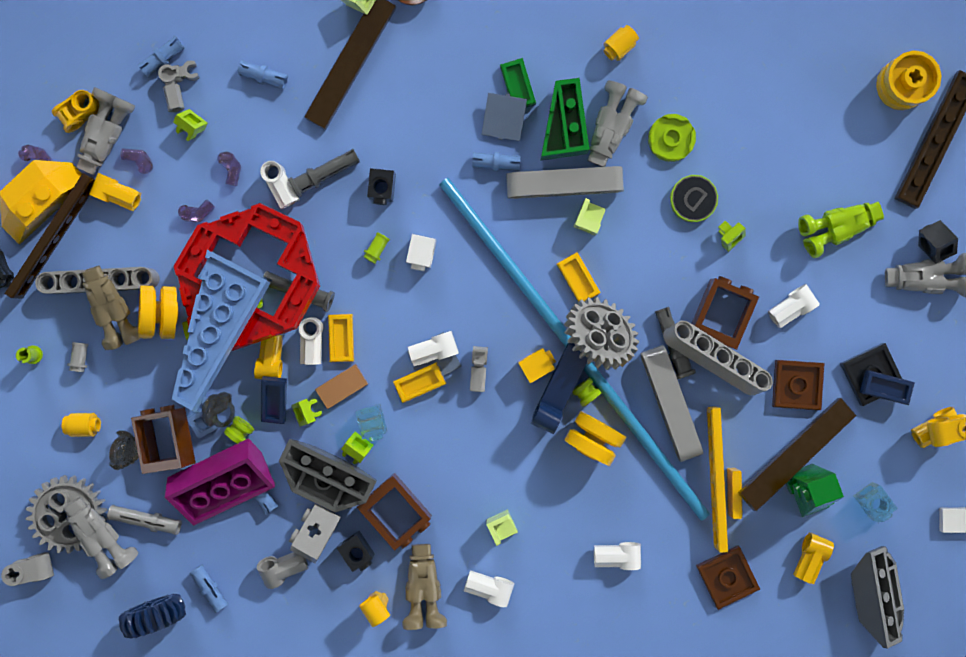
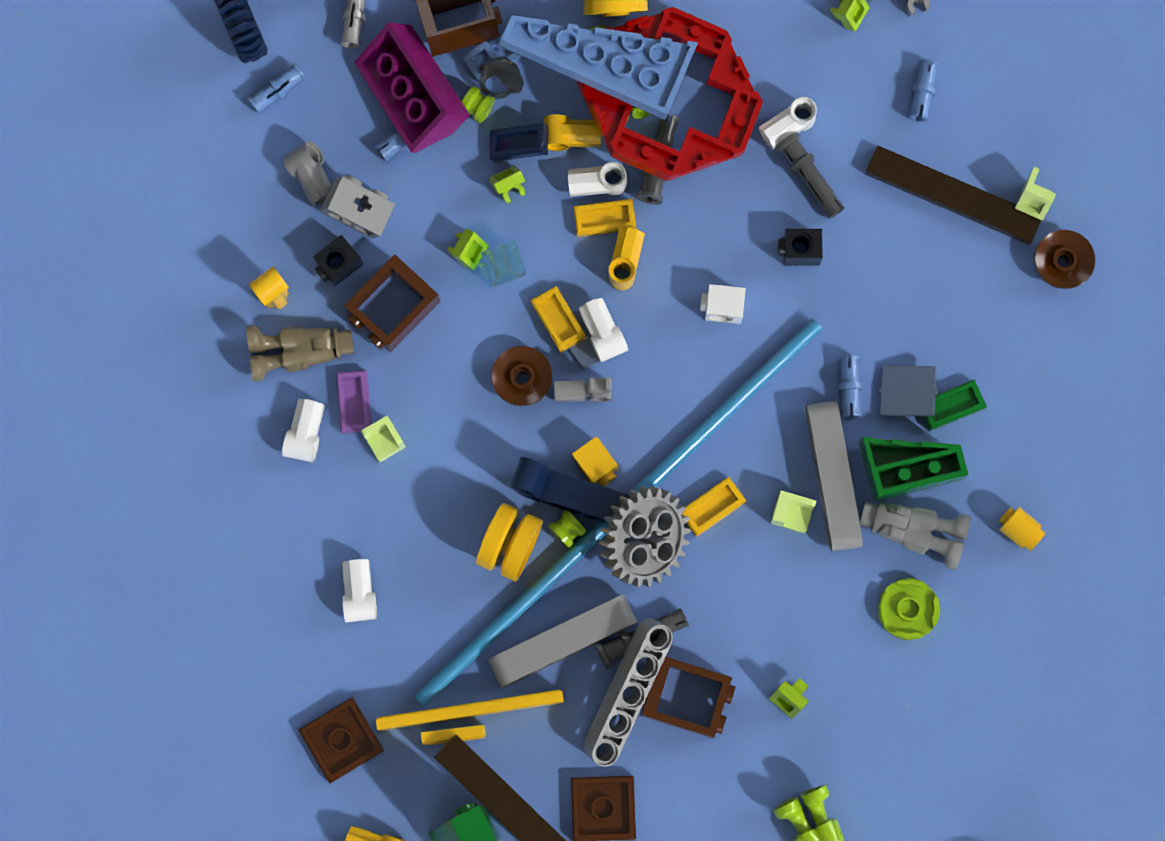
camera: 85 degrees right, 10 degrees down
(195, 214) = (740, 27): clear purple arm -> none
(232, 165) = (805, 64): clear purple arm -> none
(324, 477) = (429, 211): dark grey wedge -> none
(341, 386) = (543, 224): medium nougat tile -> none
(374, 324) = (626, 256): none -> yellow piece
(376, 248) = (722, 248): lime pin -> none
(458, 427) = (517, 361): none -> reddish brown dish
(468, 547) = (353, 401): none -> medium lavender tile
(694, 198) = (833, 645): black tile -> none
(798, 303) = (710, 795): white piece -> none

